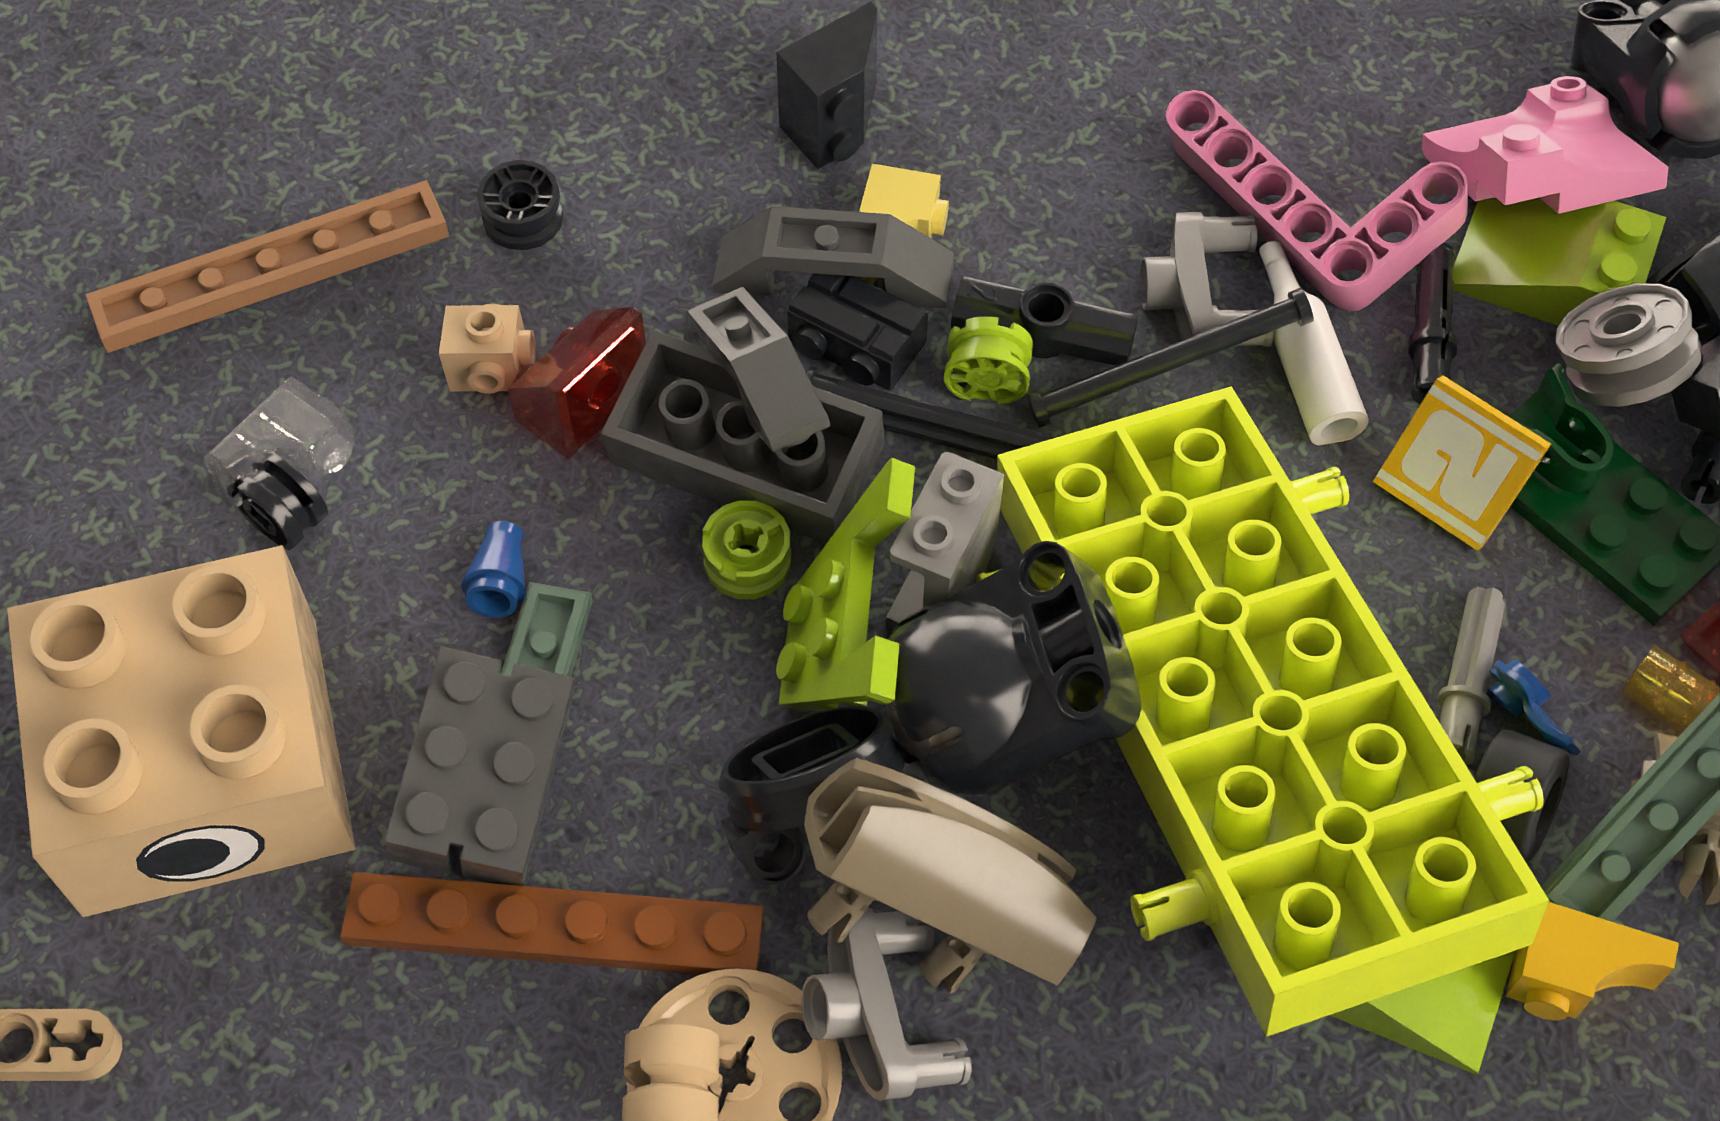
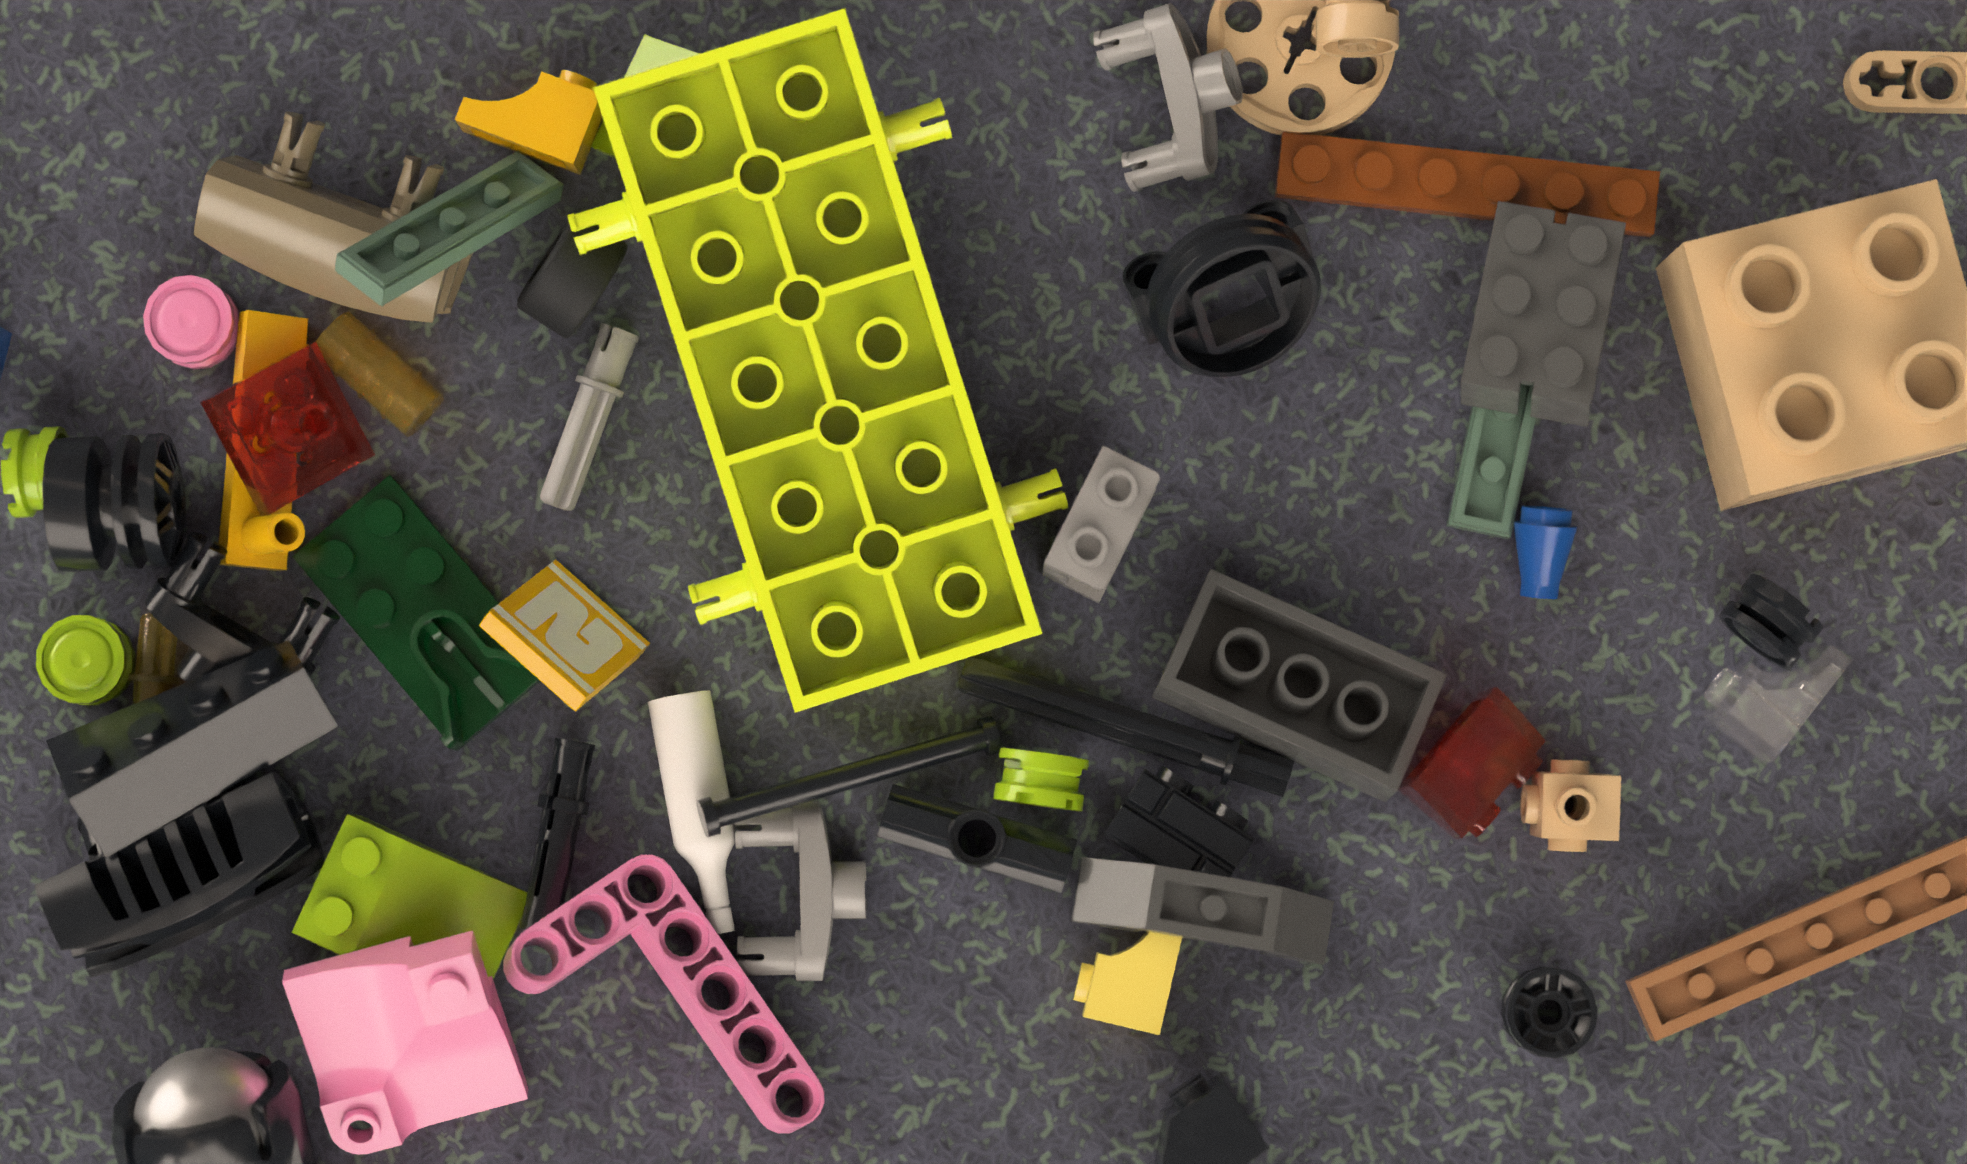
camera: 175 degrees left, 25 degrees up
(737, 570) = (1312, 546): lime wheel -> none
(763, 364) = (1296, 738): dark grey slope -> none
(830, 605) = (1215, 448): lime wing -> none
(945, 866) = (1120, 162): dark tan piece -> none
(1011, 673) = (1047, 364): black piece -> none
(1522, 692) = (544, 370): blue plate -> none
(1629, 344) = (392, 782): light grey wheel -> none

